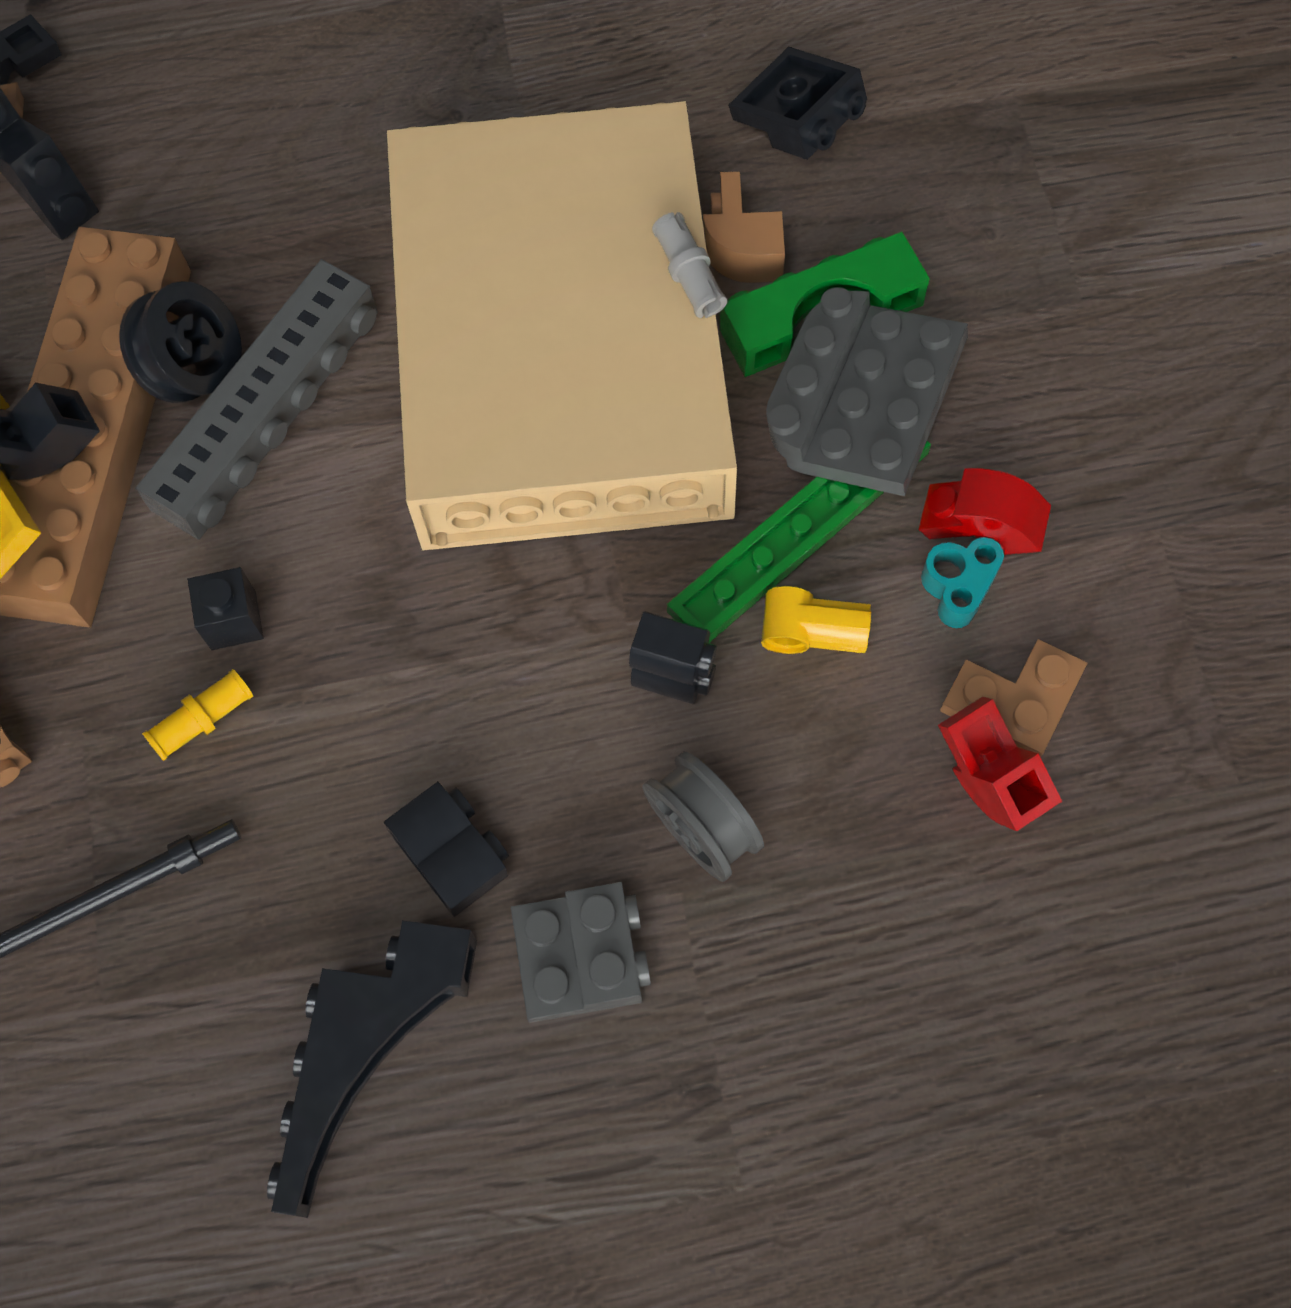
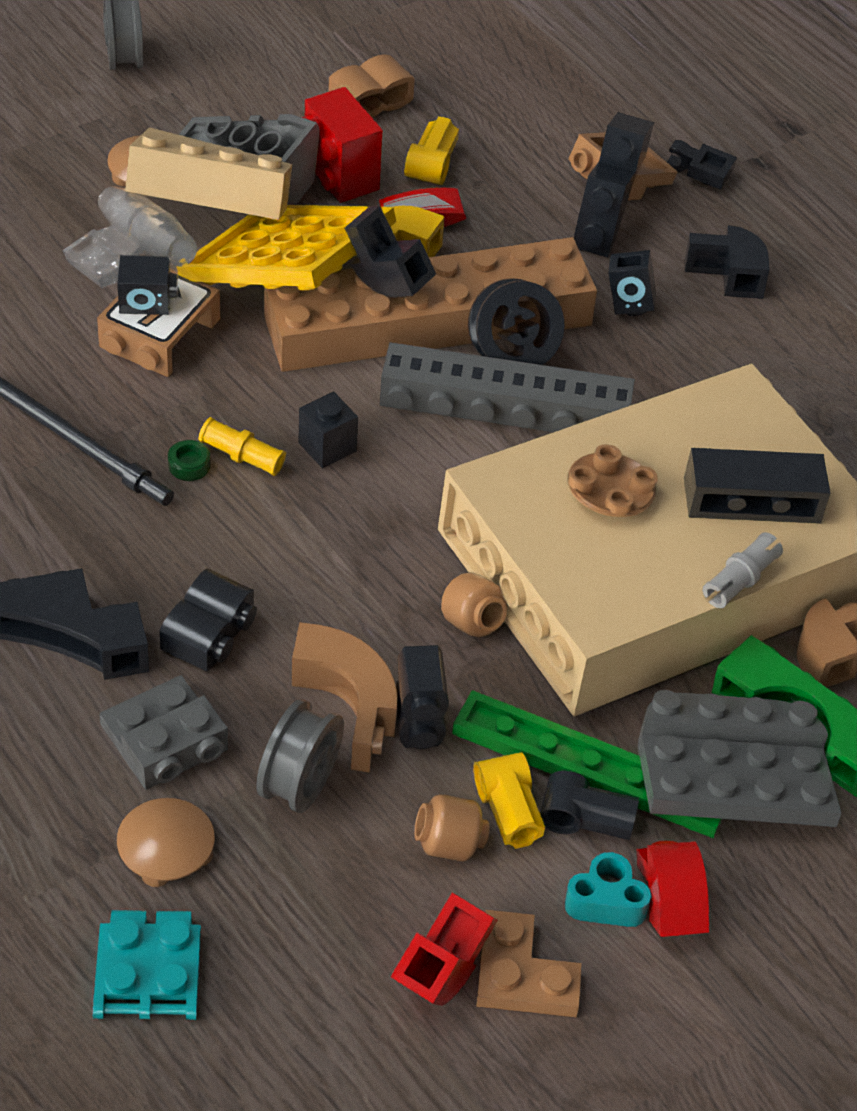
camera: 60 degrees right, 20 degrees down
(170, 198) = (632, 282): none -> black brick
(182, 82) = (736, 256): none -> black brick
(183, 783) = (189, 460): none -> dark green tile
(512, 338) = (612, 483): none -> medium nougat dish
(553, 554) = (474, 604): none -> medium nougat head
(579, 200) = (756, 485): none -> black brick
(604, 711) = (355, 672): none -> medium nougat arch
(728, 1004) = (165, 840): none -> medium nougat dish
(834, 697) = (451, 827): none -> medium nougat head
(851, 562) = (574, 805): none -> black piece
(883, 1080) = (147, 964): none -> teal plate

